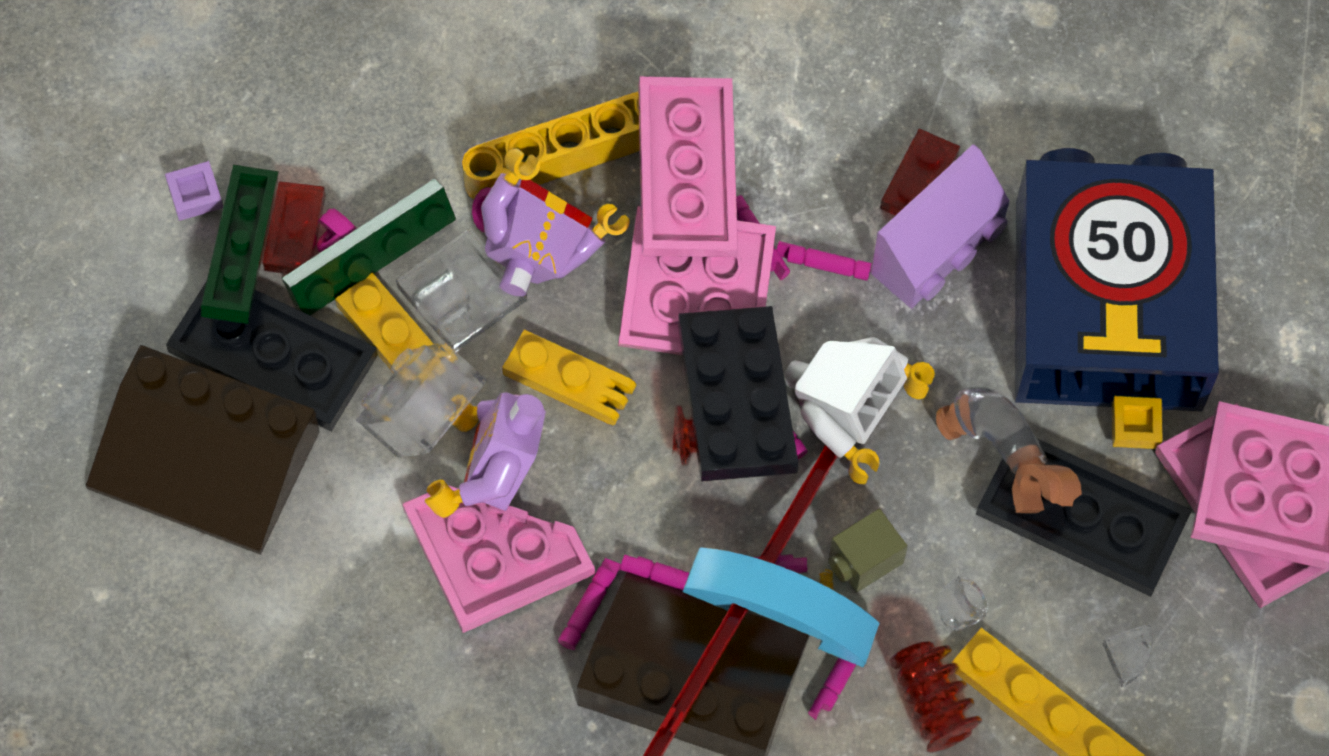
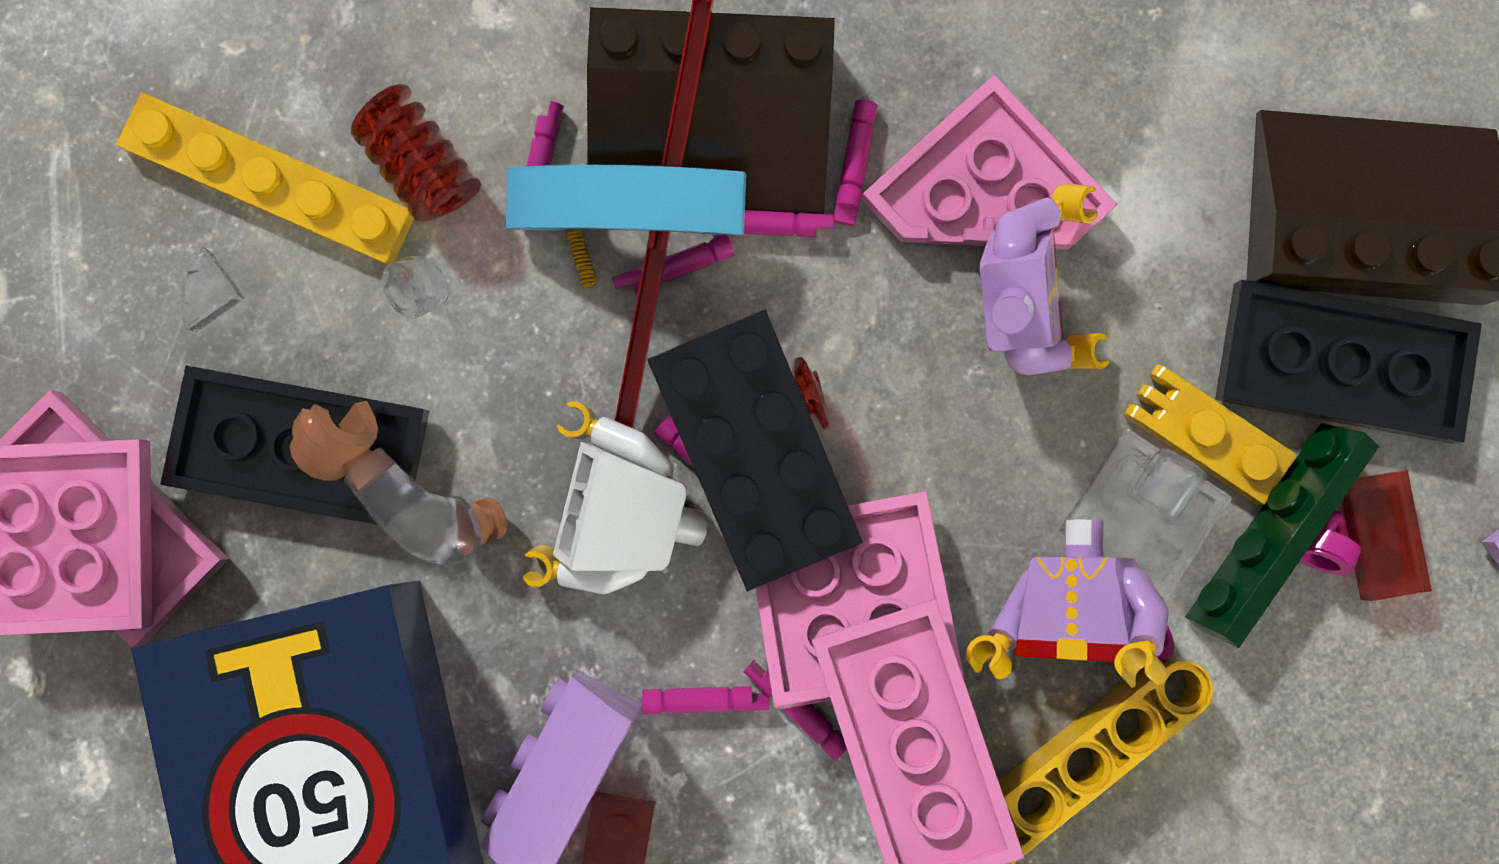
camera: 165 degrees right, 20 degrees up
(239, 244) = (1449, 479): dark green plate -> none
(420, 399) = (1147, 322): clear brick -> none
(568, 377) = (976, 441): yellow hinge -> none
(866, 551) = (545, 312): olive brick -> none
(1136, 422) = (255, 586): yellow plate -> none

